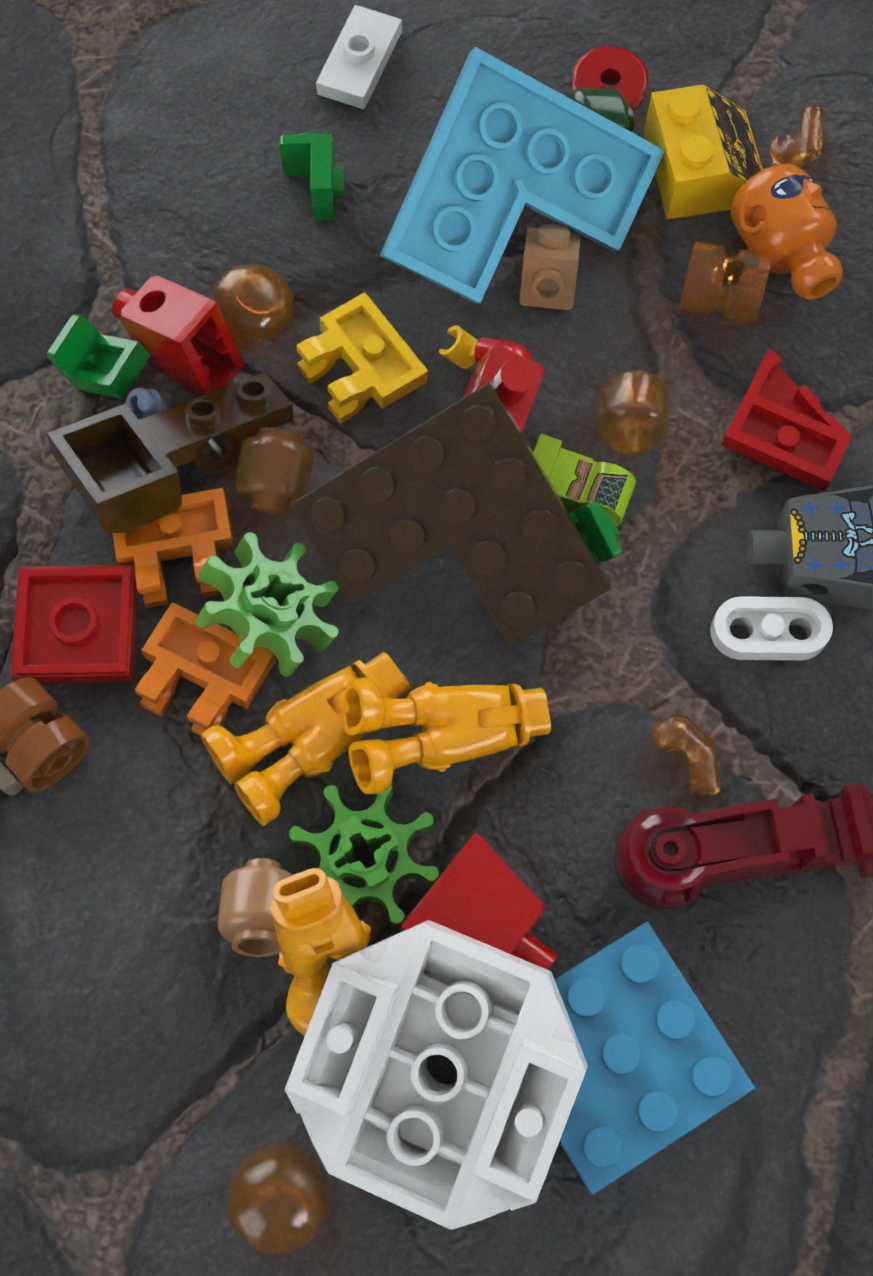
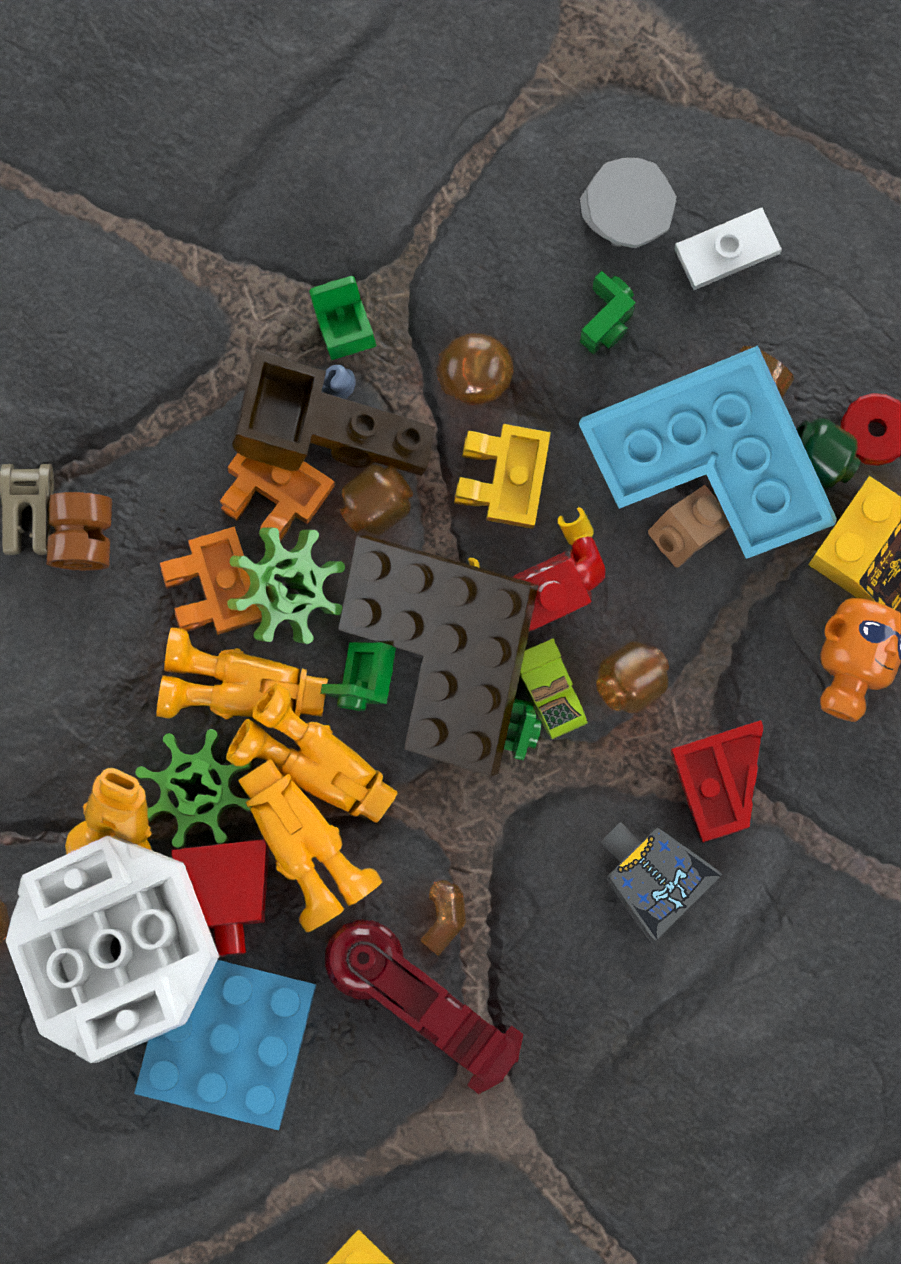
camera: 45 degrees right, 10 degrees up
(75, 624) = (168, 483): red plate -> none
(181, 334) = (403, 351): red torso -> none
(246, 84) = (628, 202): none -> light grey hat
(246, 905) = (108, 749): medium nougat head -> none
(413, 617) = (365, 676): none -> green bracket
(500, 800) = (296, 835): none -> light orange piece
(705, 274) = (773, 634): clear orange wheel -> none
(768, 628) = (569, 892): white plate -> none

